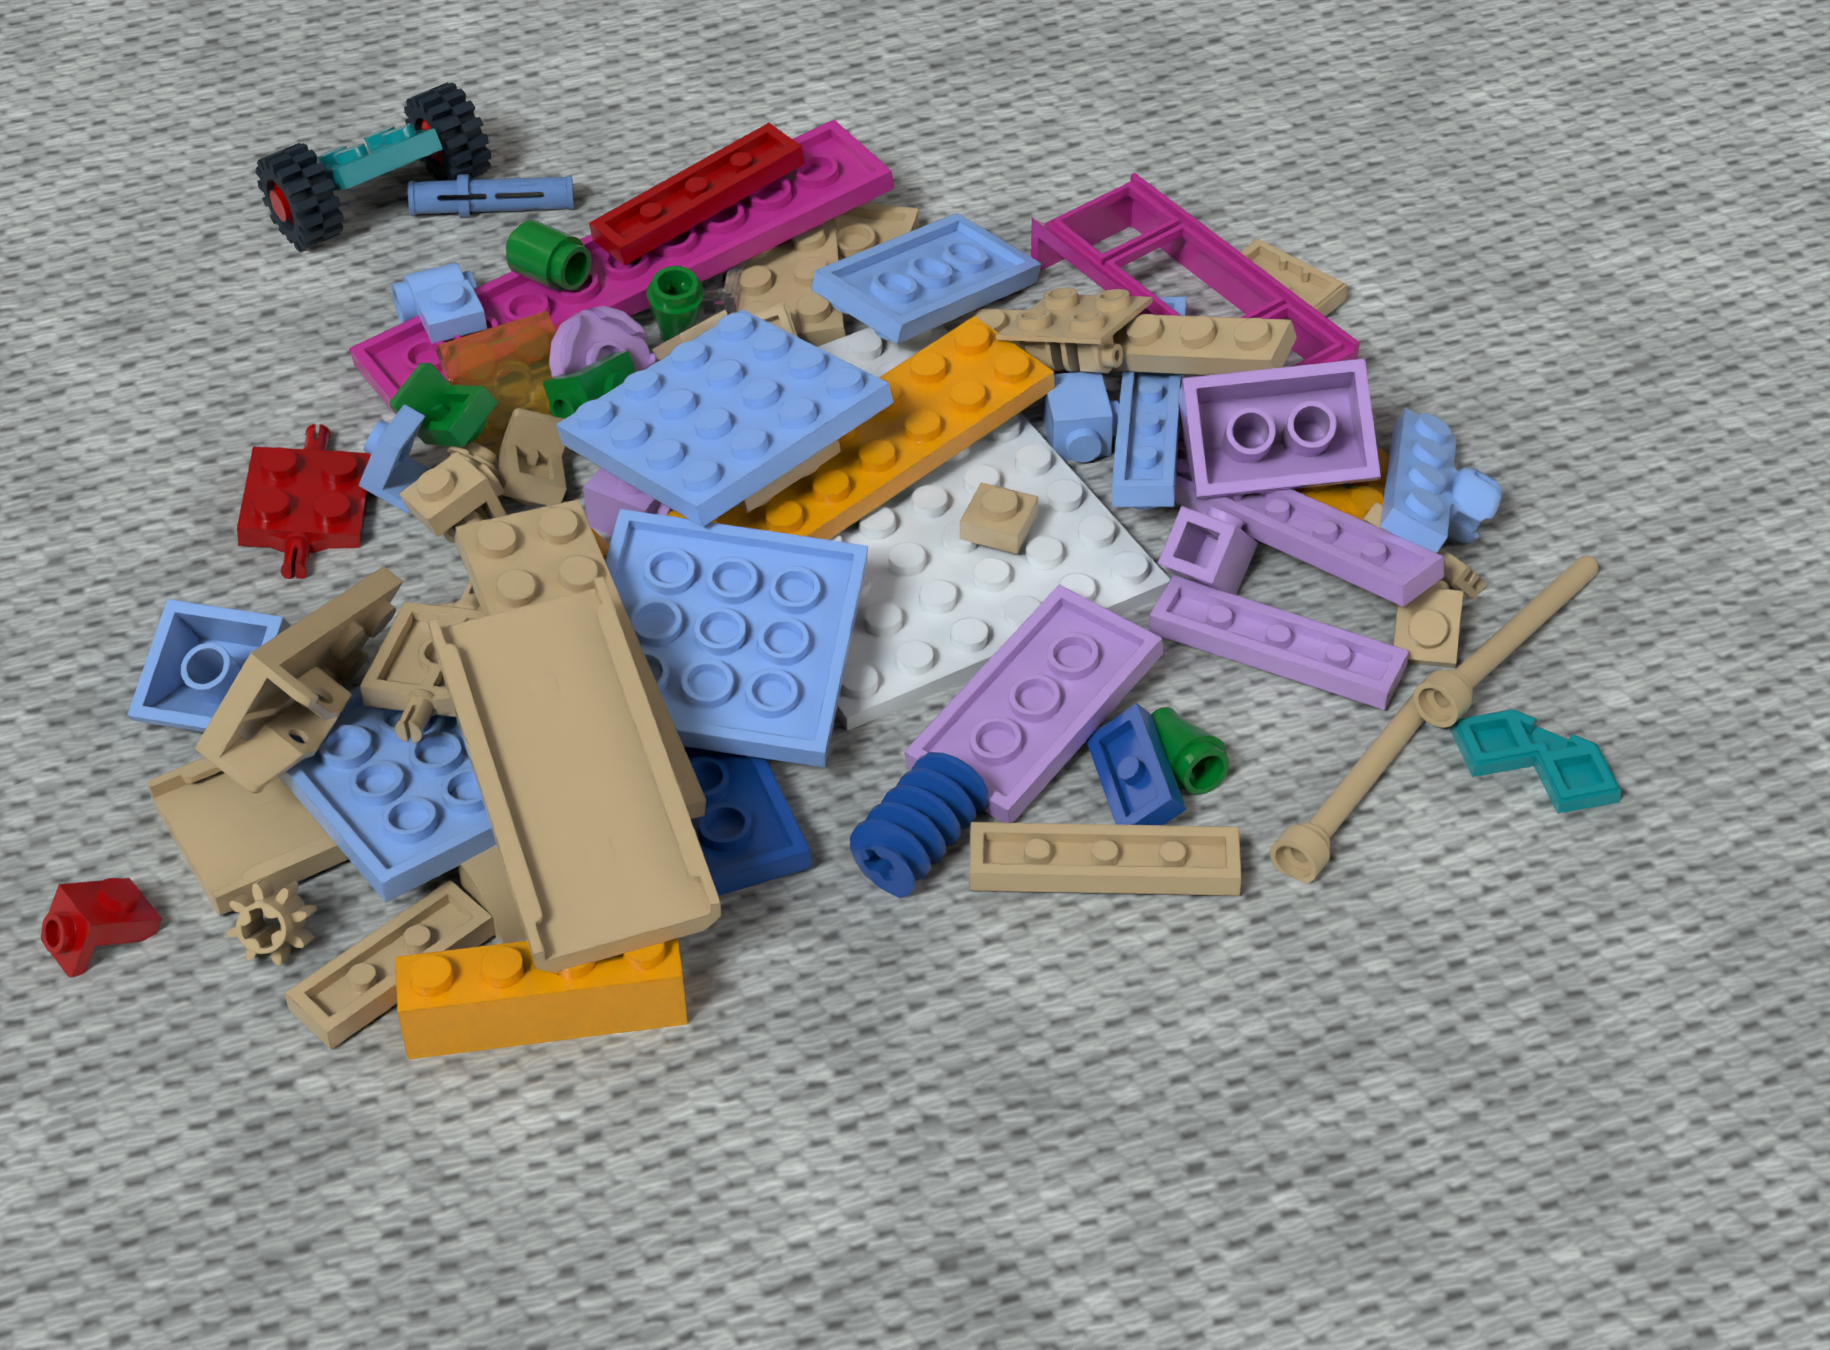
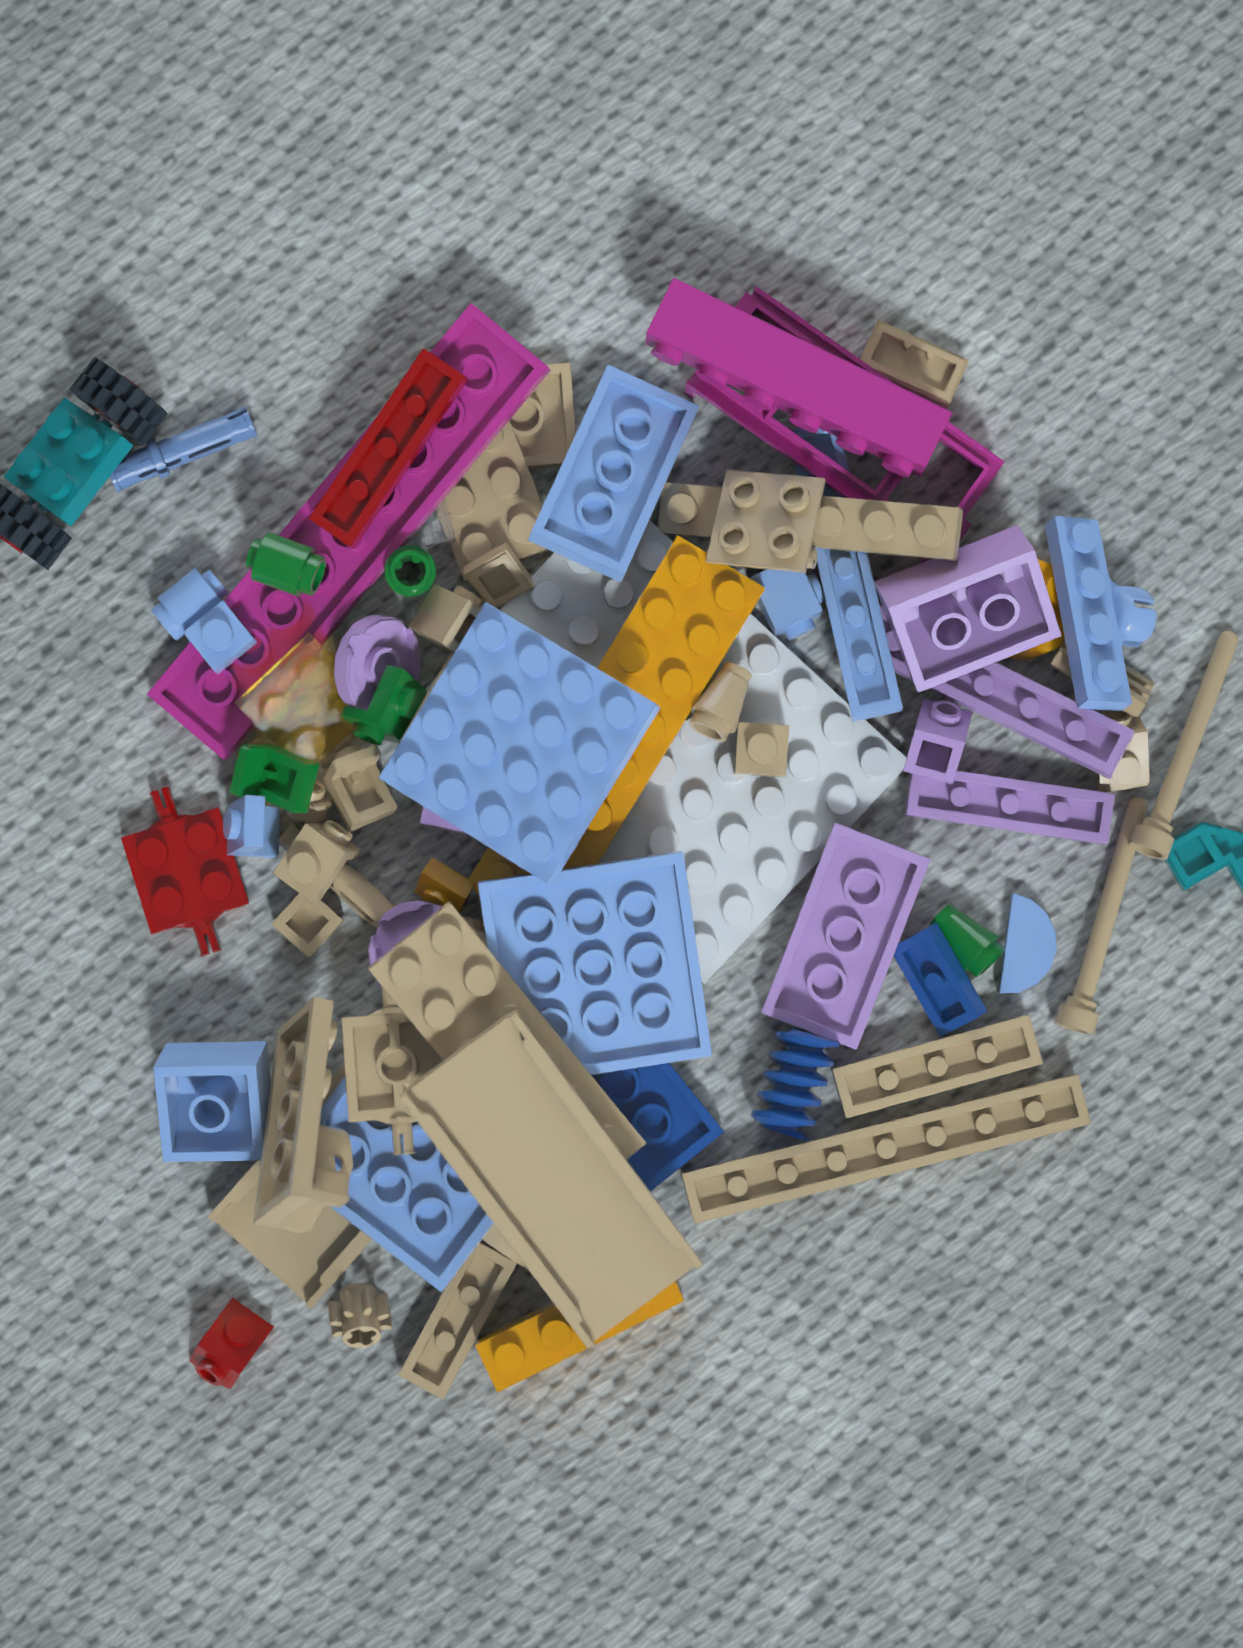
camera: 20 degrees left, 40 degrees up
(418, 562) = (307, 924): none -> tan plate
(964, 463) = (721, 703): none -> tan cone
(1010, 923) = (886, 1148): none -> tan plate
(1153, 222) = (796, 378): none -> dark pink brick
(1258, 780) = (1027, 945): none -> light blue tile

